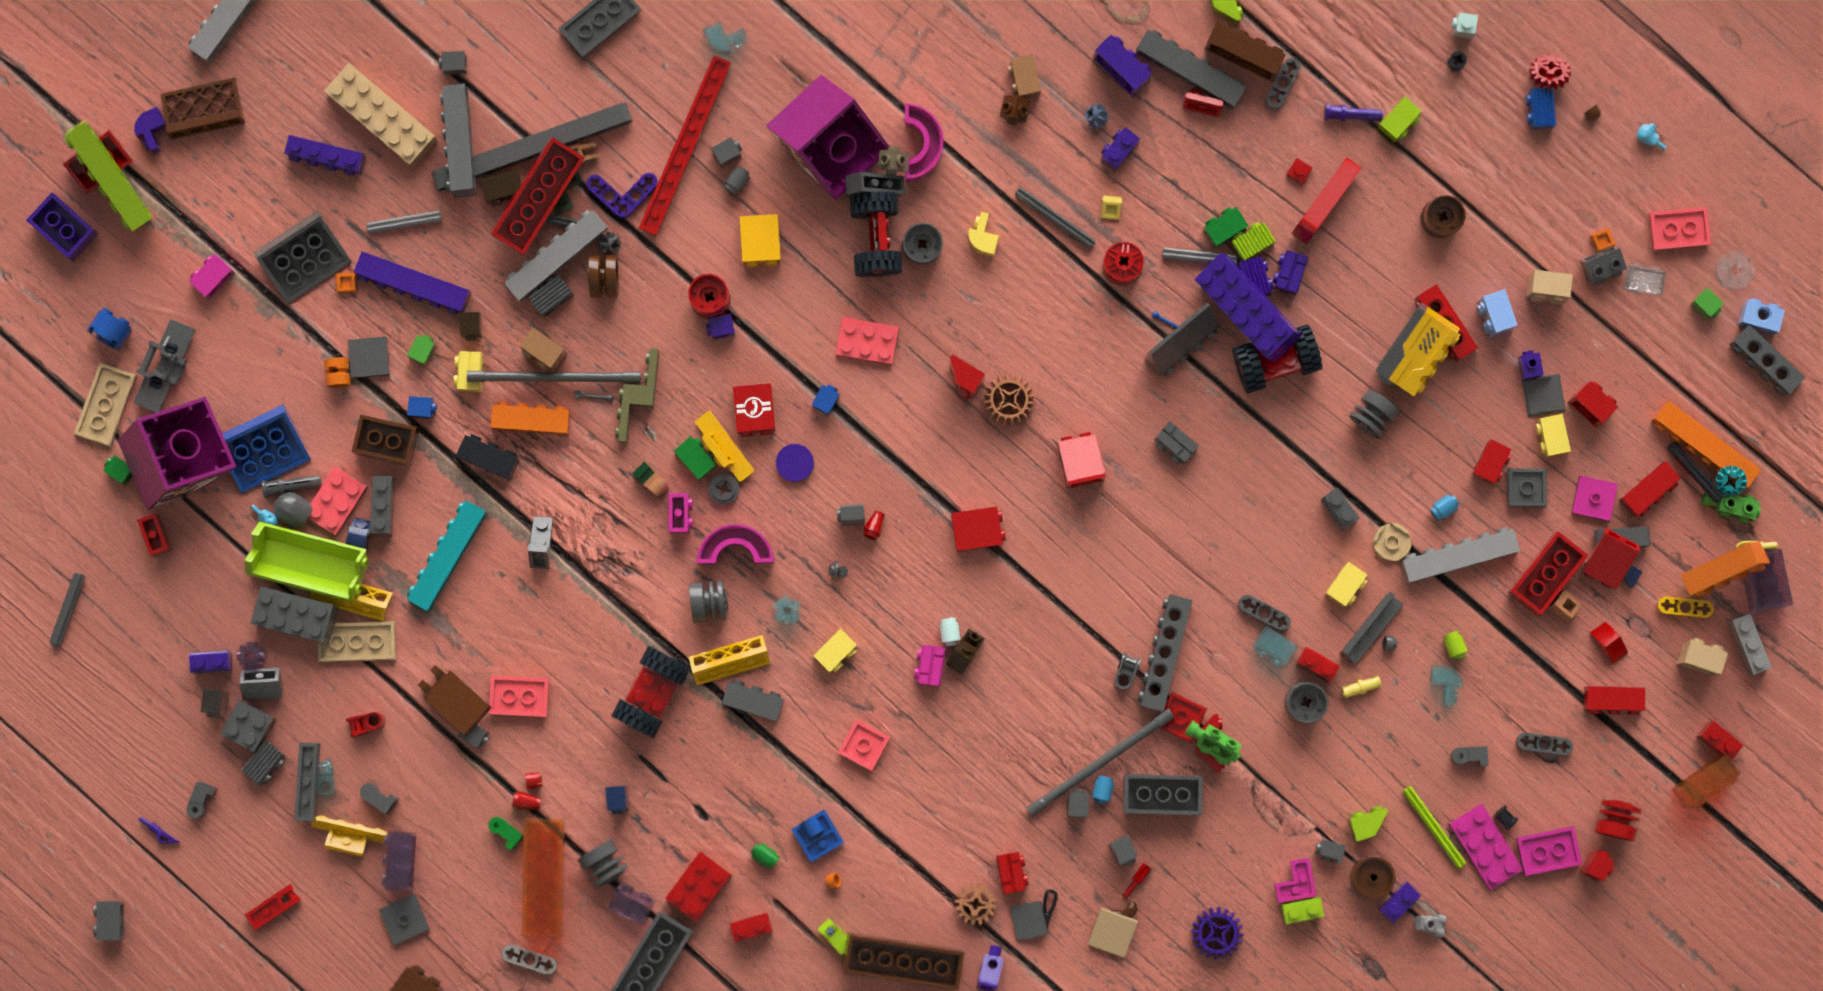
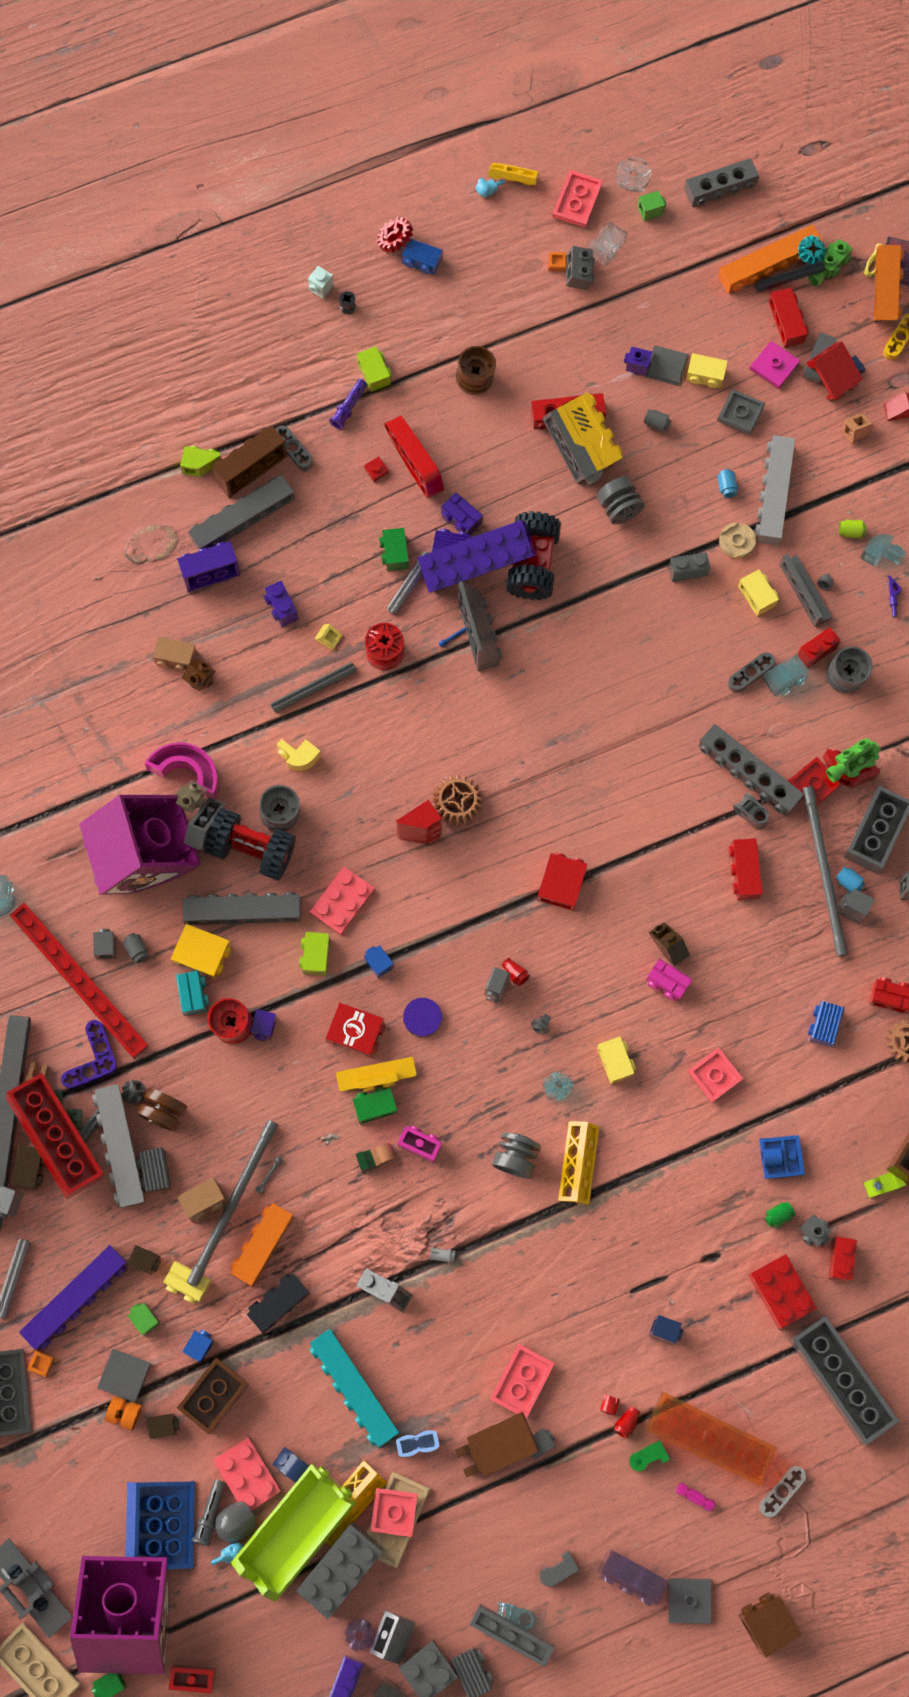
camera: 65 degrees left, 10 degrees down
(342, 410) = (163, 1426): none -> dark brown brick
(347, 837) = (584, 1620): yellow bracket -> none
(361, 637) = (394, 1512): none -> coral plate
(362, 724) = (479, 1550): red piece -> none
(382, 505) = (274, 1429): dark grey brick -> none
(423, 627) = (411, 1445): none -> light blue brick
(491, 887) = (695, 1497): none -> dark pink axle
(594, 579) = (442, 1255): none -> light grey pin
(602, 863) = (722, 1373): dark grey wheel -> none
(631, 903) = (772, 1364): brick -> none
(637, 395) = (289, 1132): olive bracket -> none
(651, 692) = (578, 1248): plate -> none
(715, 493) = (415, 1084): dark grey gear -> none
(719, 250) = (191, 993): none -> teal brick
(734, 535) = (467, 1096): dark pink brick -> none
(753, 700) = (627, 1158): dark grey brick -> none
(769, 887) = (809, 1235): none -> dark grey brick
(806, 340) = (315, 953): none -> lime brick
(815, 256) = (241, 909): none -> dark grey brick
(833, 881) = (830, 1162): orange hinge -> none
(949, 631) = (645, 949): light aqua brick -> none
(957, 824) = (826, 1023): none -> blue brick
(1068, 689) = (745, 869): none -> red brick
(1081, 460) = (543, 762): slope -> none
(1096, 115) = (241, 609): sand blue gear -> none
(1175, 443) = (566, 676): dark grey brick -> none
(1206, 105) = (277, 519): red hinge -> none
(1252, 242) = (419, 533): lime brick -> none
(1361, 687) = (854, 621): light yellow pin -> none
(1408, 712) = (893, 595): none -> dark purple hand
(1477, 412) = (657, 420): none -> dark grey brick
(1491, 462) = (706, 427): red brick -> none
(1496, 313) = (581, 365): light blue brick -> none
(1547, 573) = (824, 426): red brick -> none
(1549, 287) = (578, 315): tan brick -> none
(1593, 113) = (446, 220): reddish brown hinge -> none
(1593, 403) = (695, 325): red brick -> none
(1676, 154) = (513, 173): none -> yellow hinge
(1750, 317) = (686, 161): light blue brick -> none

